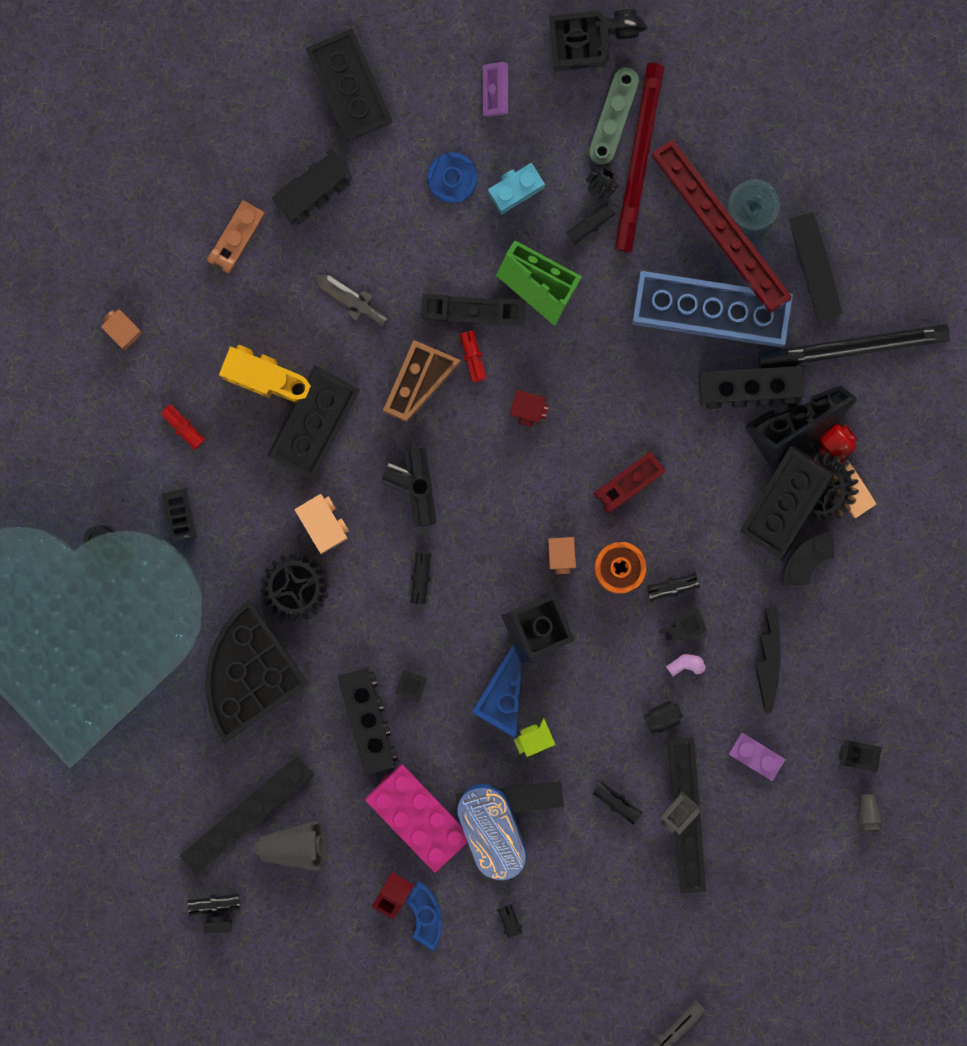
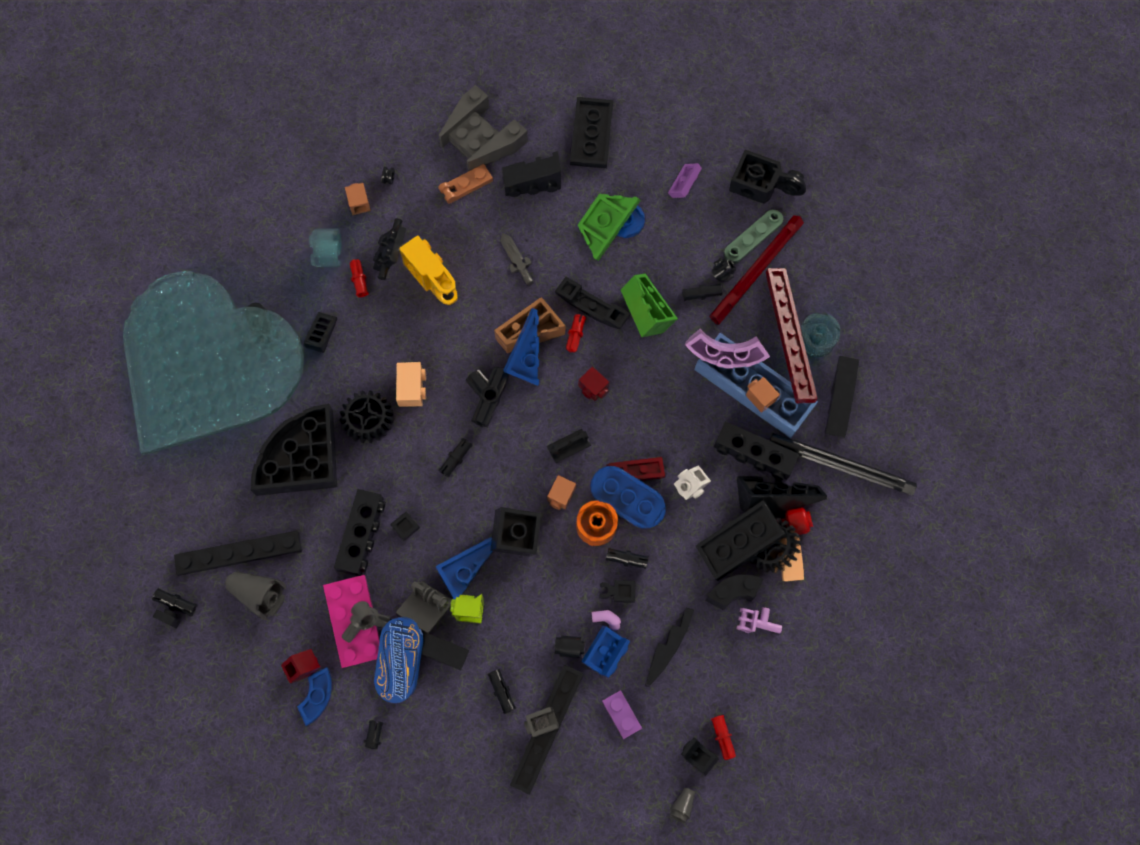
camera: 30 degrees right, 15 degrees down
(126, 414) = (326, 247): none -> clear light blue brick
(138, 278) = (388, 175): none -> black bush
(200, 374) = (389, 249): none -> black plate
(212, 168) = (476, 136): none -> dark grey wedge
(313, 423) = (444, 318): black plate -> none
(431, 197) = (605, 220): none -> bright green wing
(431, 812) = (363, 618): none -> dark grey axle
(434, 422) = (524, 357): none -> blue wing
(485, 760) = (424, 606): none -> dark grey hinge
(516, 188) = (664, 244): medium azure brick -> none
(539, 494) = (569, 445): none -> black hinge
(637, 518) = (628, 496): none -> blue tile
(663, 296) = (724, 354): none -> lavender brick
(699, 464) = (692, 482): none -> white brick
(705, 701) = (605, 652): none -> blue bracket
(726, 323) = (762, 394): none -> nougat brick
(845, 581) = (753, 621): none -> lavender arm
(875, 721) = (723, 737): none -> red axle

